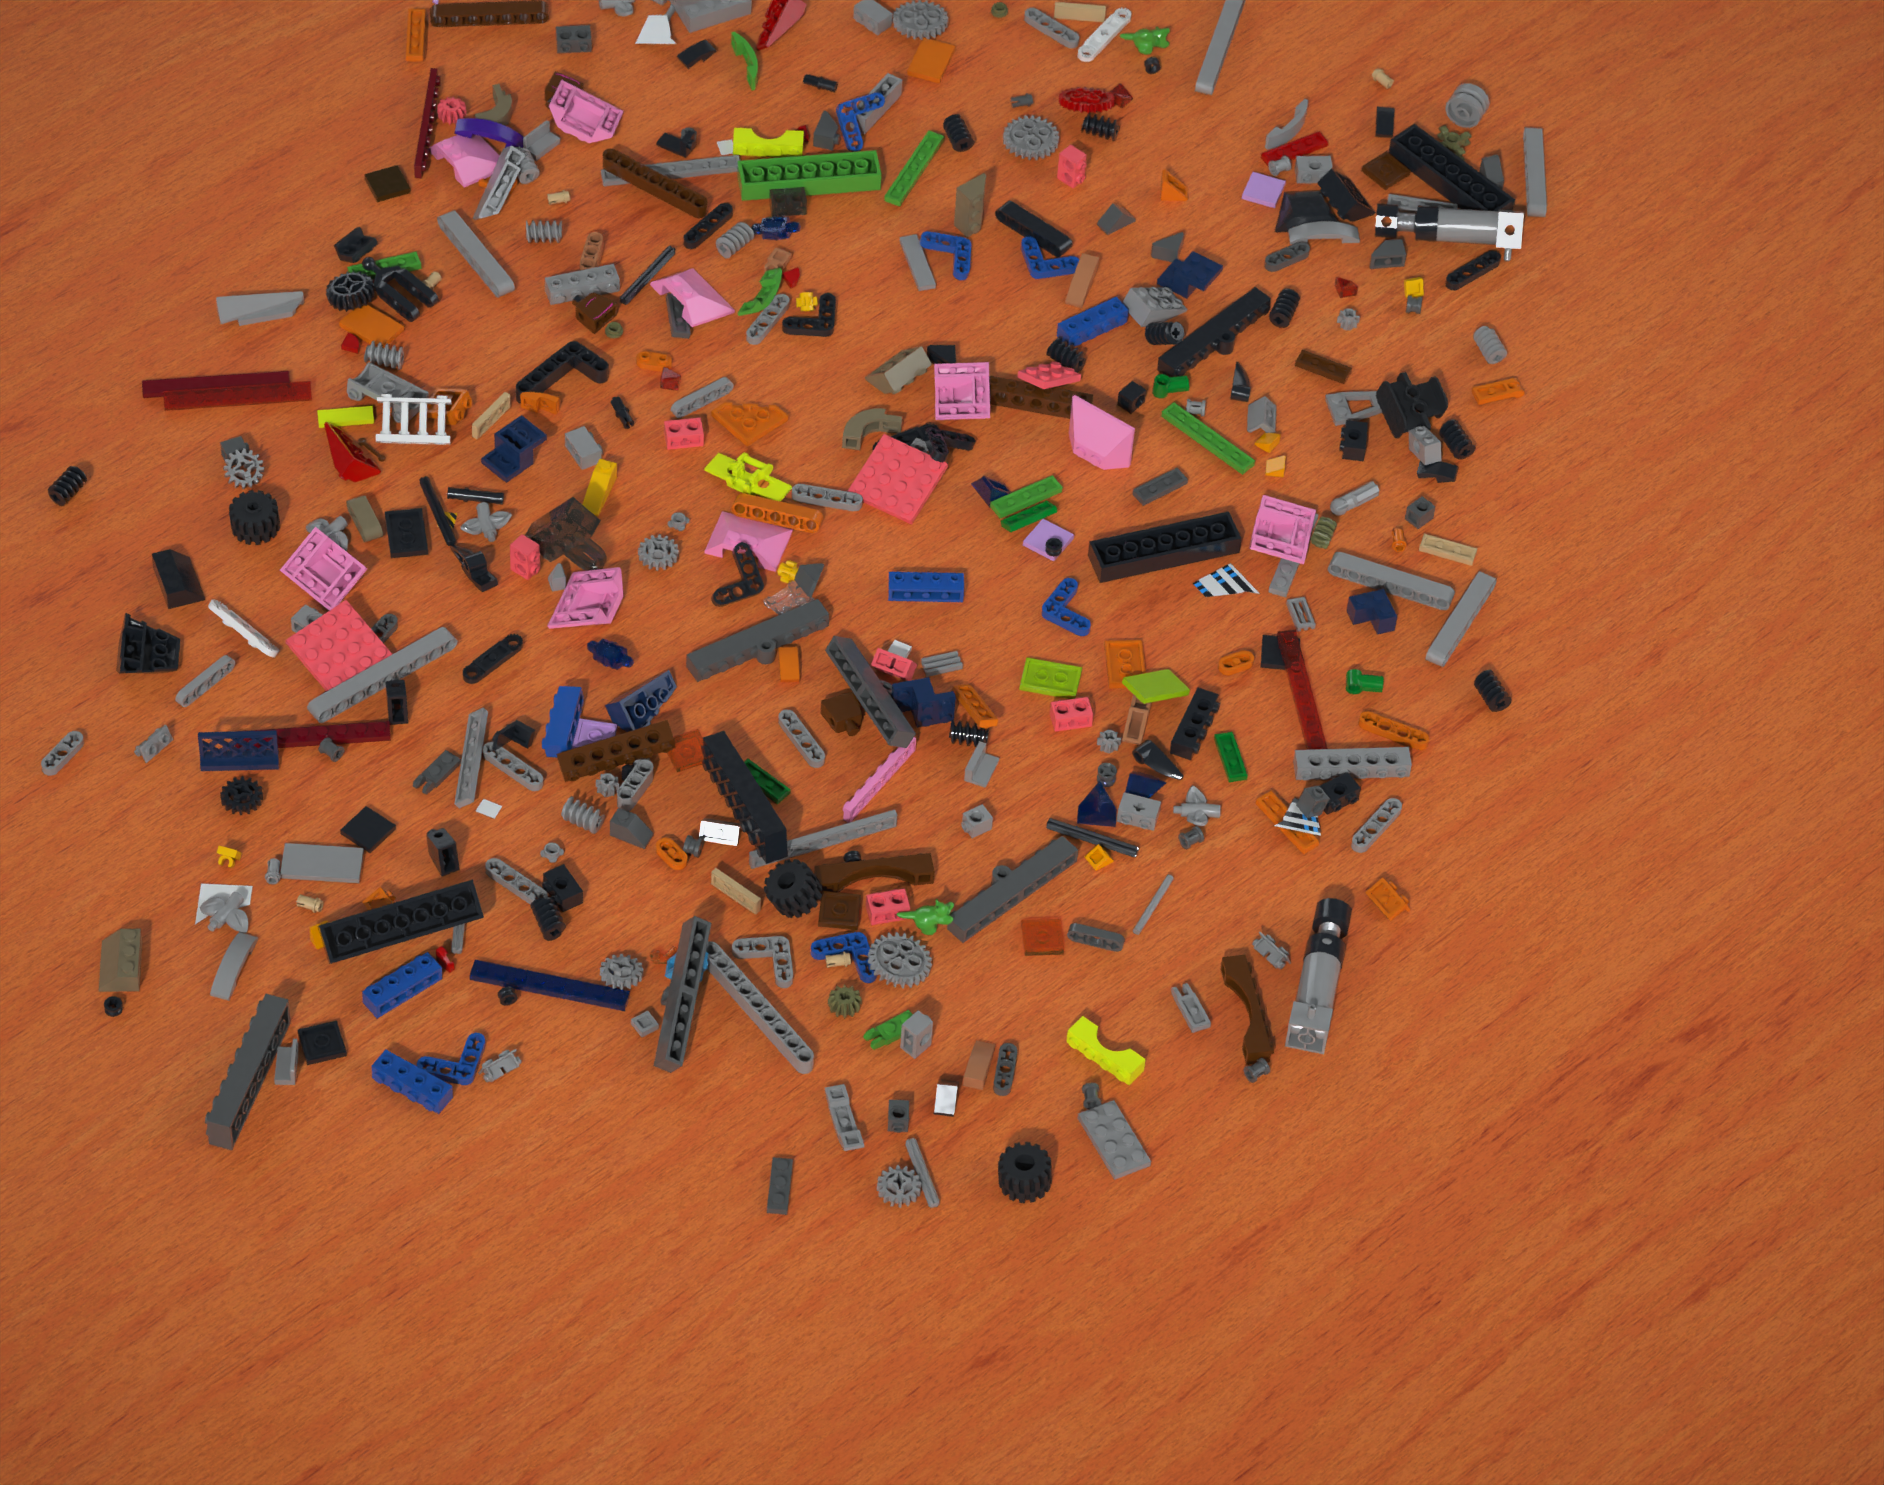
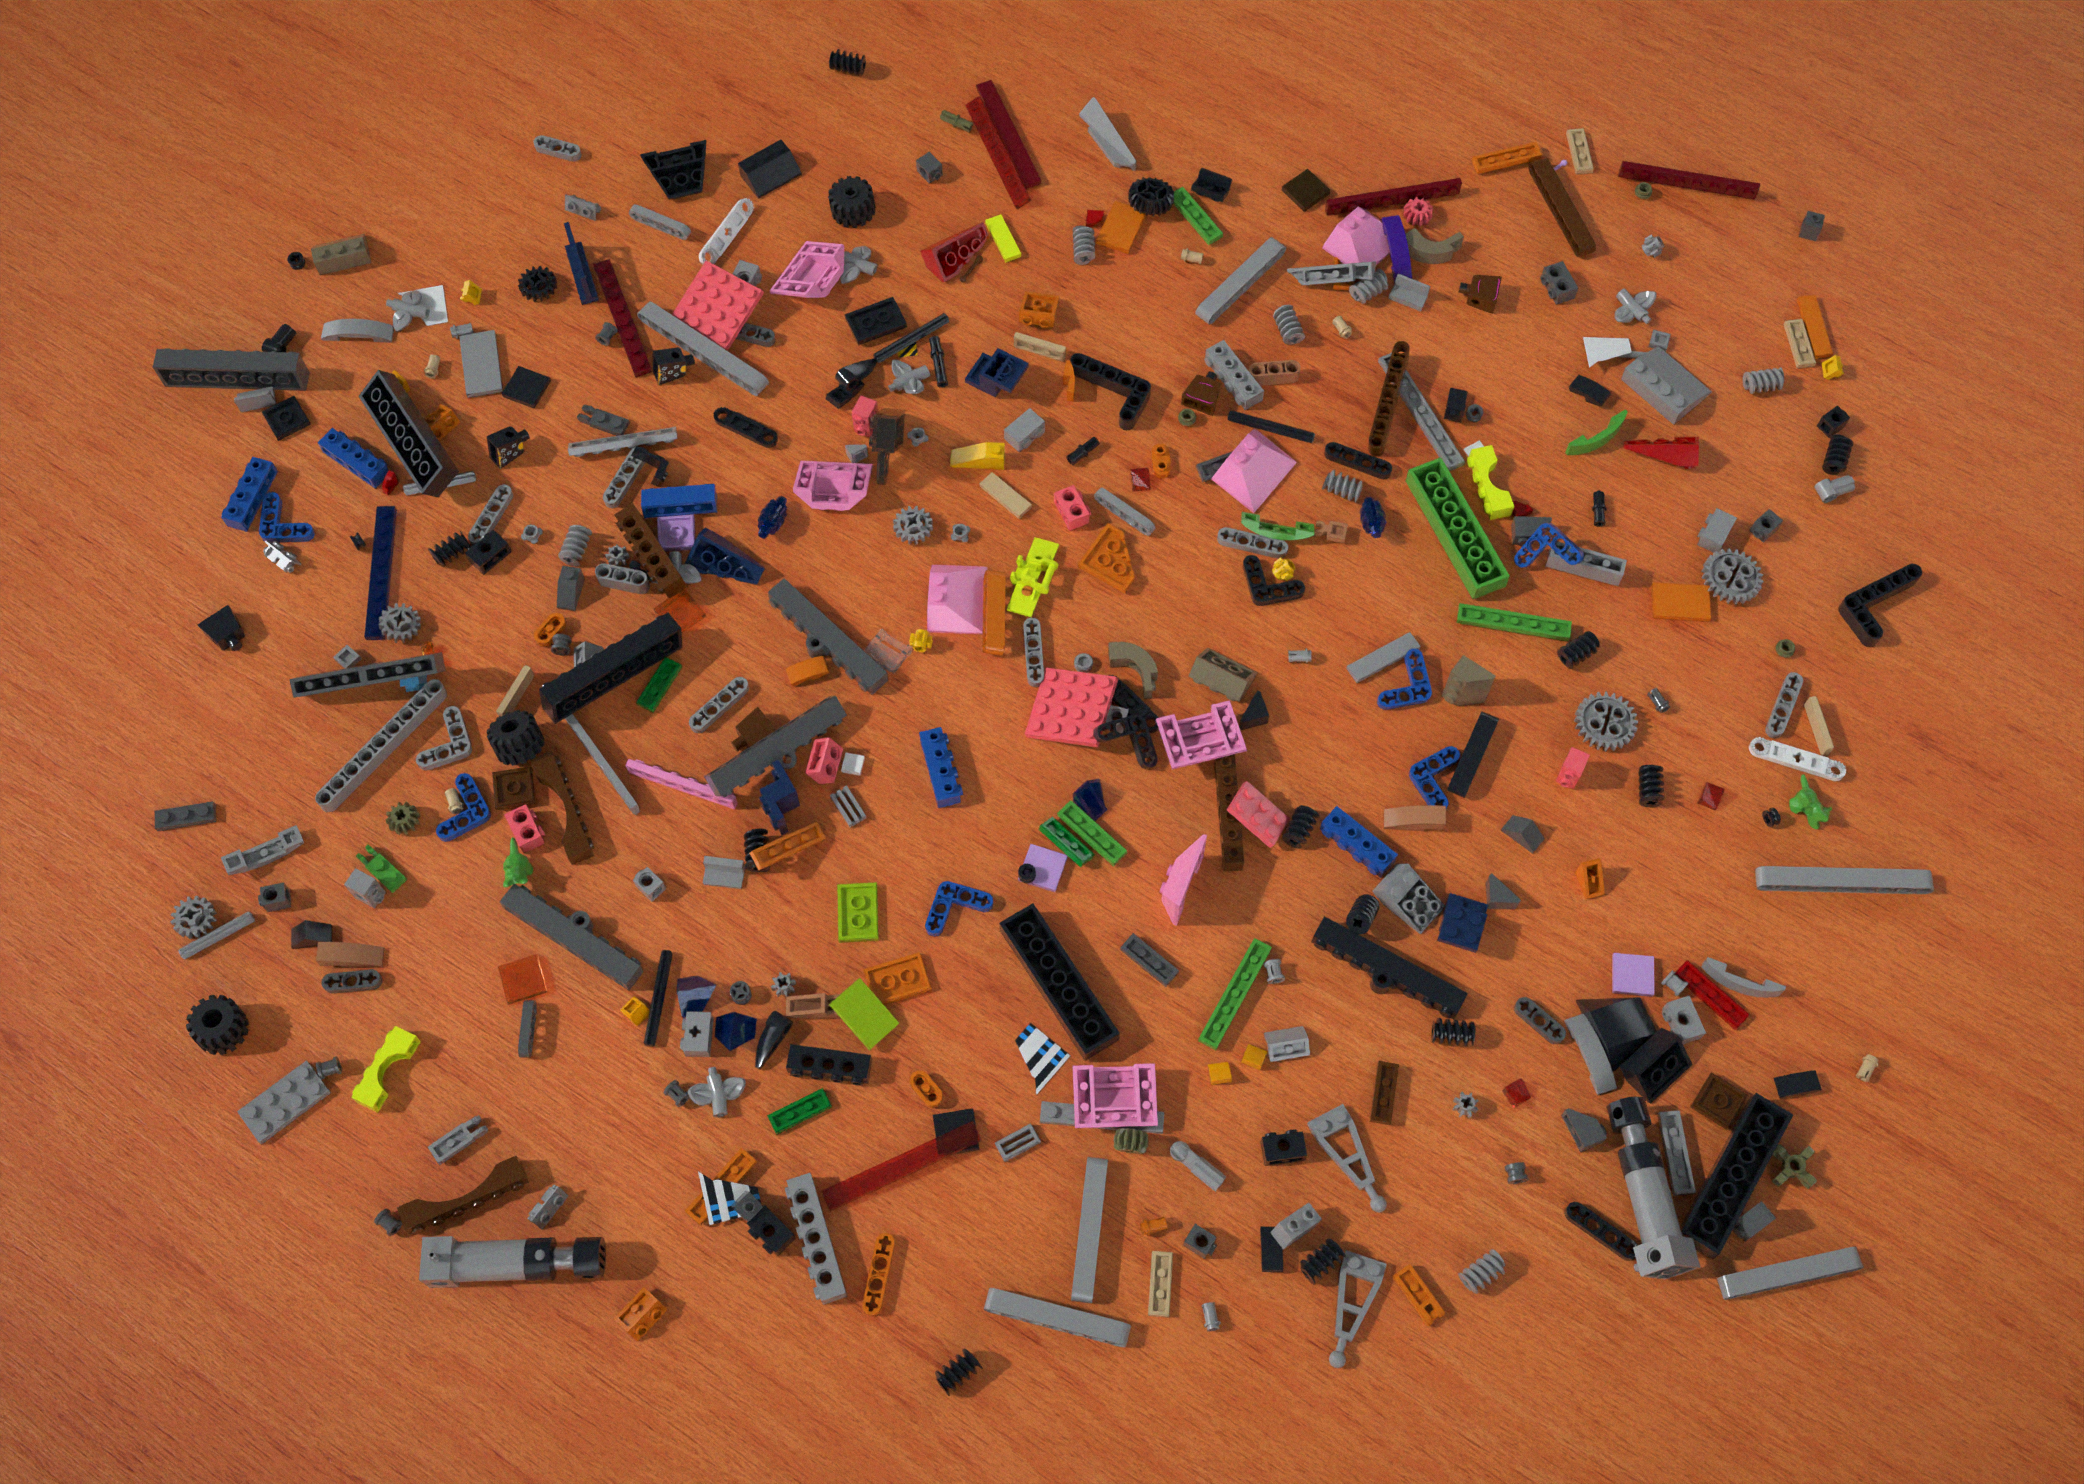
camera: 80 degrees right, 15 degrees up
(182, 418) = (956, 121): none -> olive axle
(224, 1036) = (279, 340): none -> black piece
(250, 465) = (914, 172): light grey gear -> none
(364, 518) = (882, 284): dark tan beam -> none
(377, 381) = (1036, 259): light grey piece -> none
(406, 280) = (1178, 216): black piece -> none
(422, 436) = (987, 286): white fence -> none
(488, 808) = (575, 472): white sticker -> none
(573, 1123) = (223, 629): none -> black torso
(583, 114) = (1457, 313): bright pink slope -> none
(648, 480) = (1005, 495): none -> tan tile
(745, 584) = (893, 607): black beam -> none
(788, 201) = (1419, 518): clear smoke brick -> none
(791, 277) = (1317, 549): red tile -> none
(808, 576) = (915, 660): dark grey slope -> none
(850, 465) = (1083, 662): none -> light grey tile
(852, 856) = (576, 784): black bush -> none
(898, 313) = (1299, 656): none -> light grey pin
(899, 960) = (446, 864): light grey gear -> none
(1071, 714) = (806, 942): coral brick -> none
(1086, 100) = (1681, 761): red gear -> none
(1131, 397) = (1266, 904): black brick -> none
(1153, 904) = (586, 1075): light grey bar -> none
(1165, 385) = (1298, 940): green piece -> none
(1241, 385) = (1326, 1010): black piece -> none
(1358, 682) = (933, 1223): green piece -> none
(1372, 607) = (1042, 1220): dark blue brick -> none
(1378, 826) = (743, 1279): light grey beam -> none
(1400, 408) = (1340, 1187): black piece -> none
(1414, 287) = (1543, 1167): yellow tile -> none
(1467, 105) = (1856, 1171): light grey wheel -> none
(1471, 415) = (1367, 1270): none -> light grey plate
(1484, 522) = (1210, 1316): none -> light grey pin

